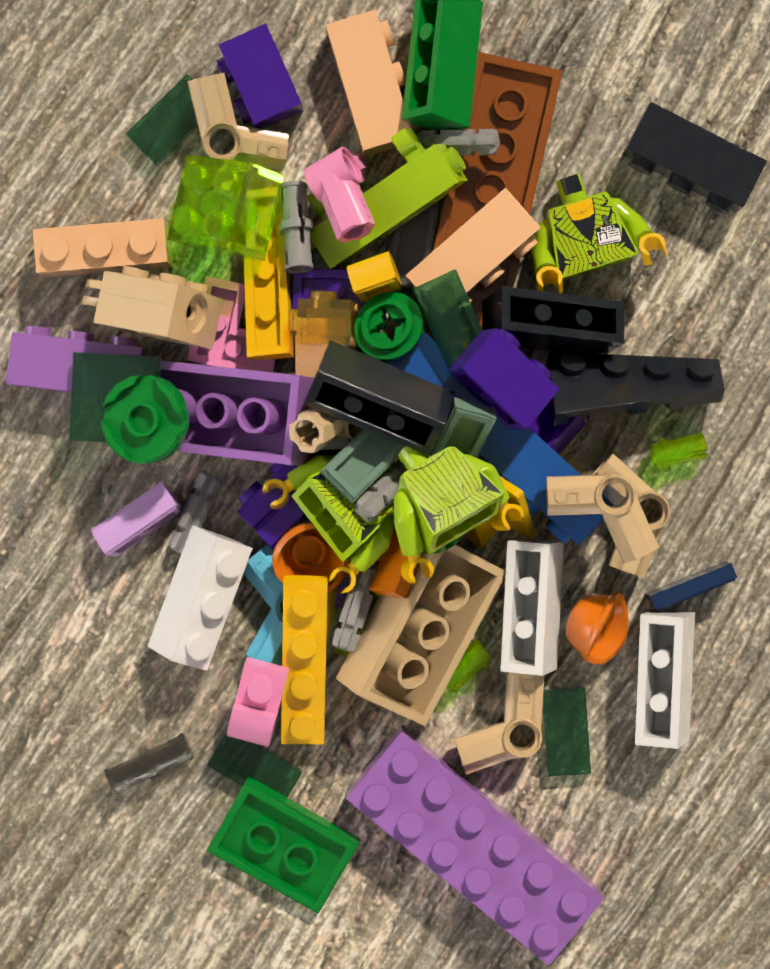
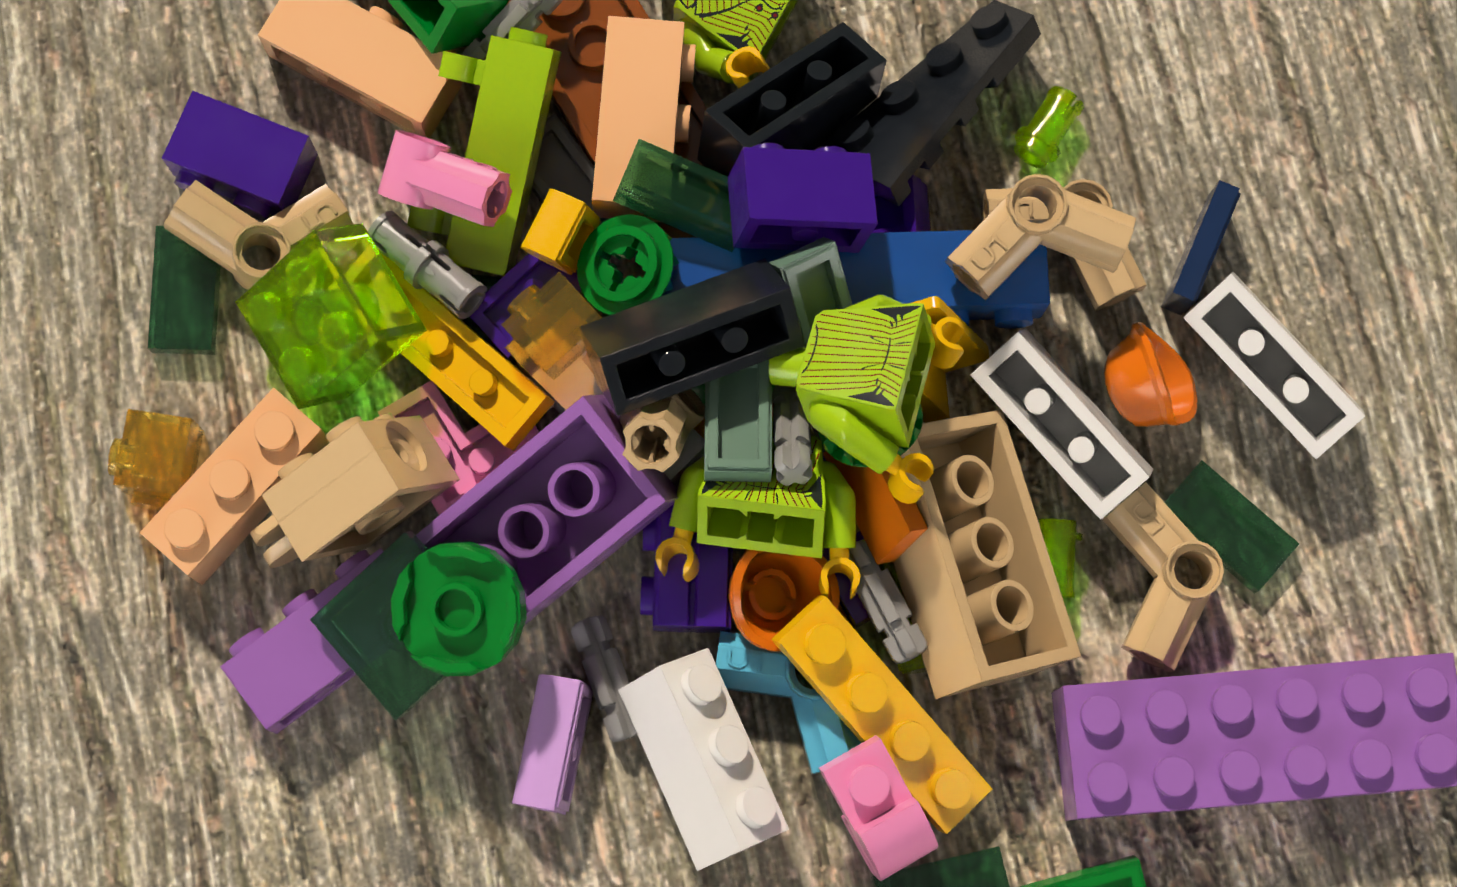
camera: 50 degrees left, 10 degrees down
(77, 195) = (154, 457): none -> clear yellow brick

